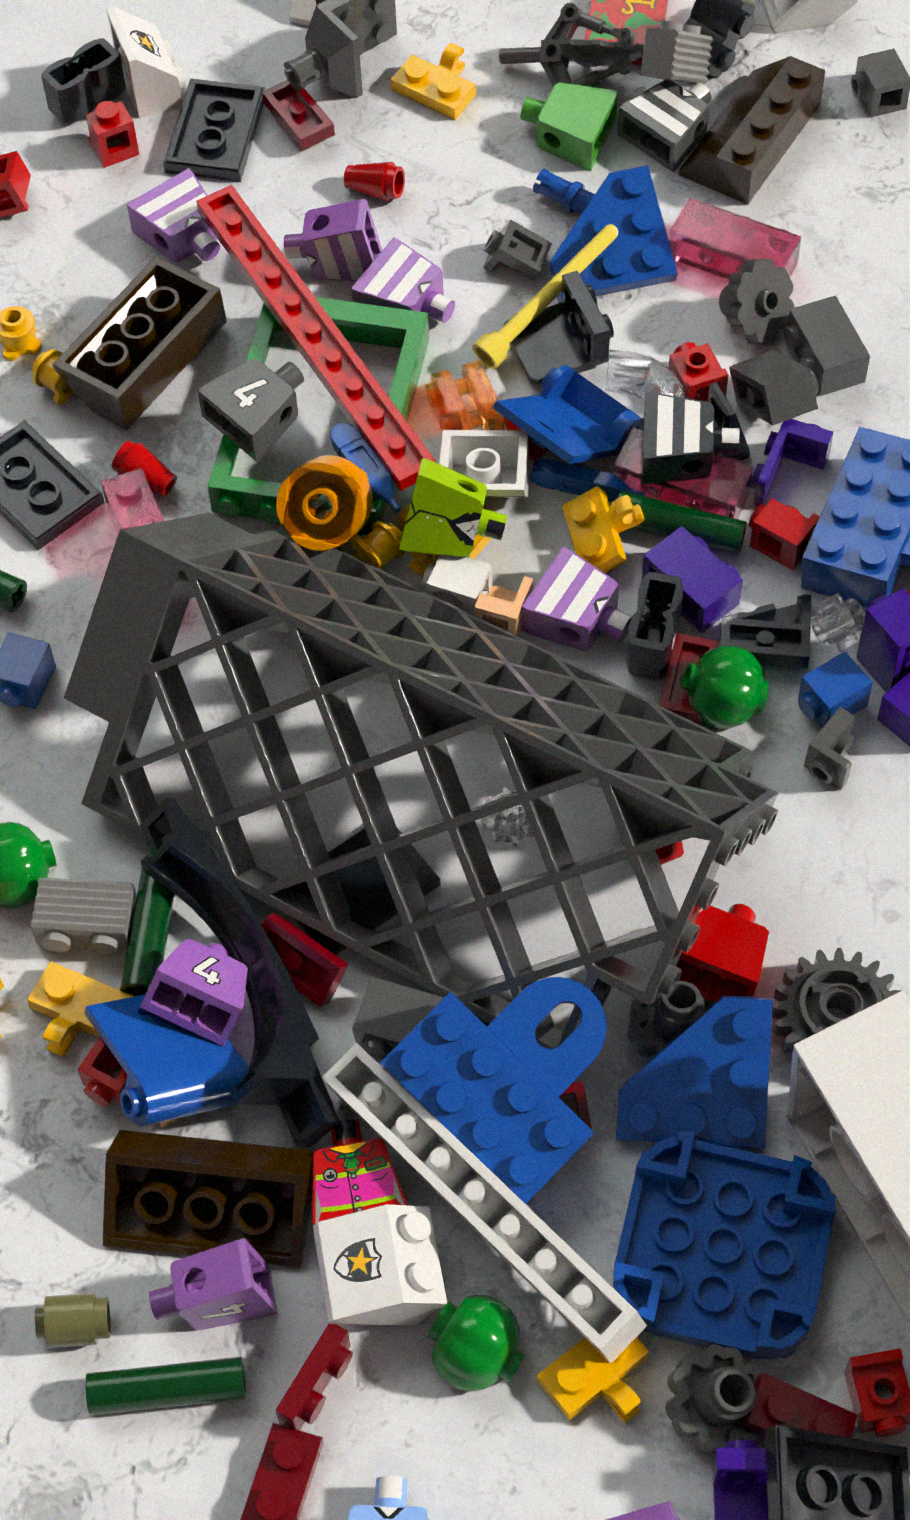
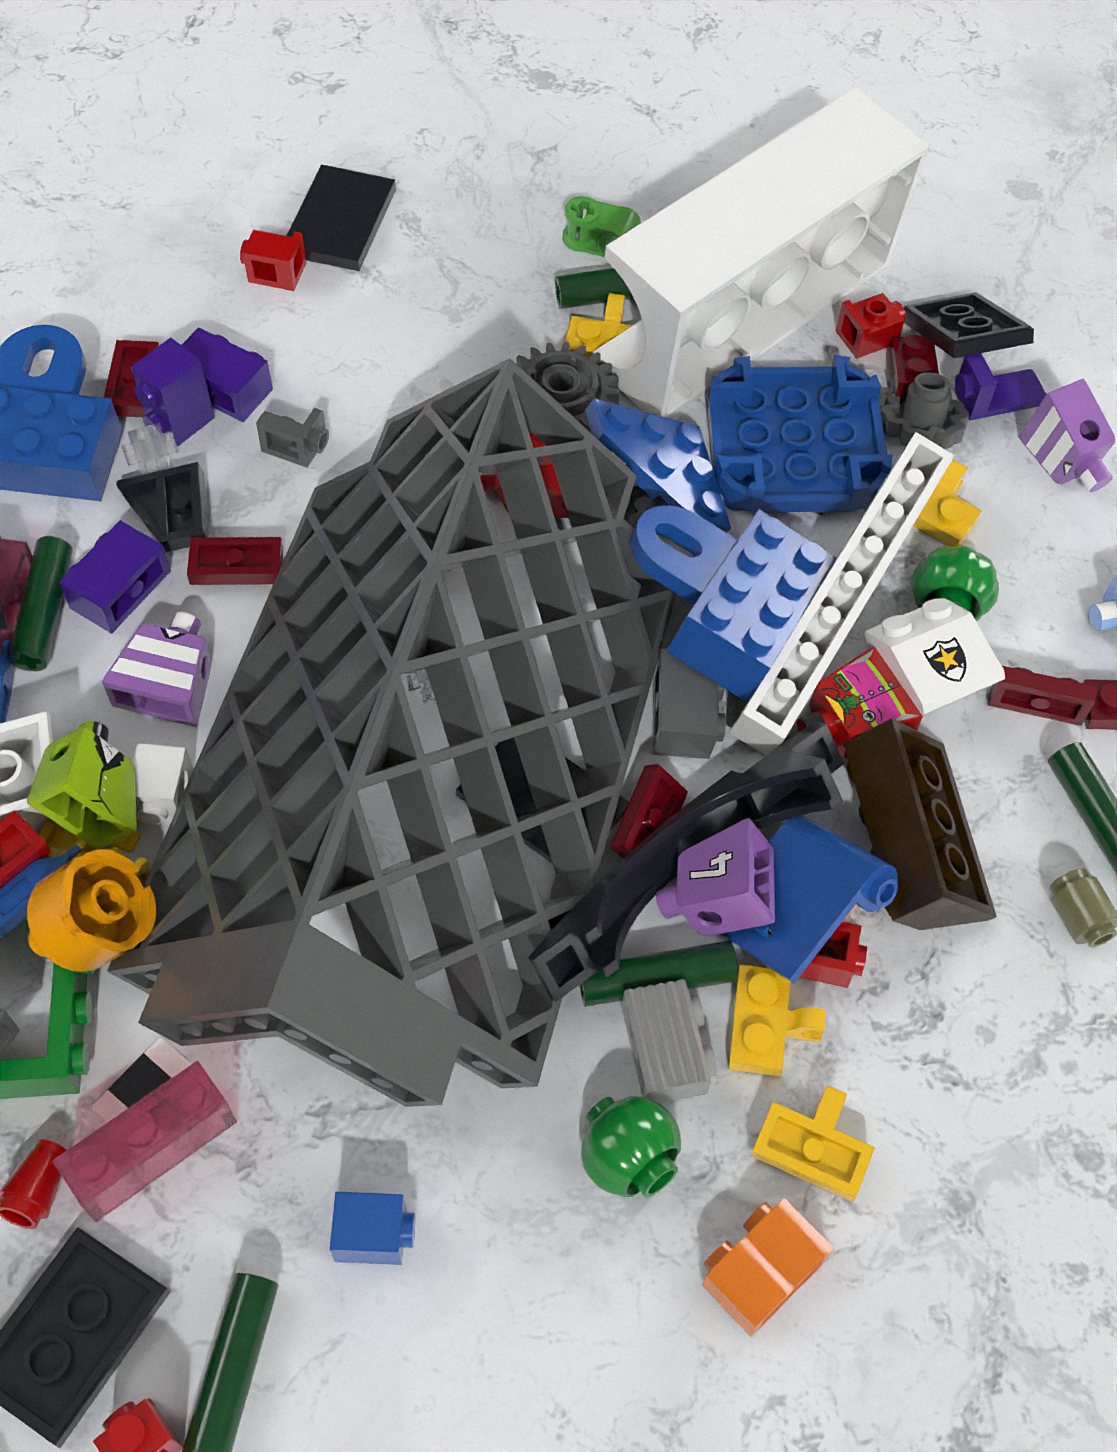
camera: 110 degrees left, 0 degrees up
(217, 1287) = (1008, 783): medium lavender torso -> none
(504, 606) = (179, 726): light nougat panel -> none
(597, 526) = (64, 671): yellow plate -> none
(654, 625) = (194, 585): black brick -> none
(725, 686) = (246, 511): green plant -> none
(781, 532) = (45, 509): red brick -> none
(834, 686) = (228, 443): blue brick -> none

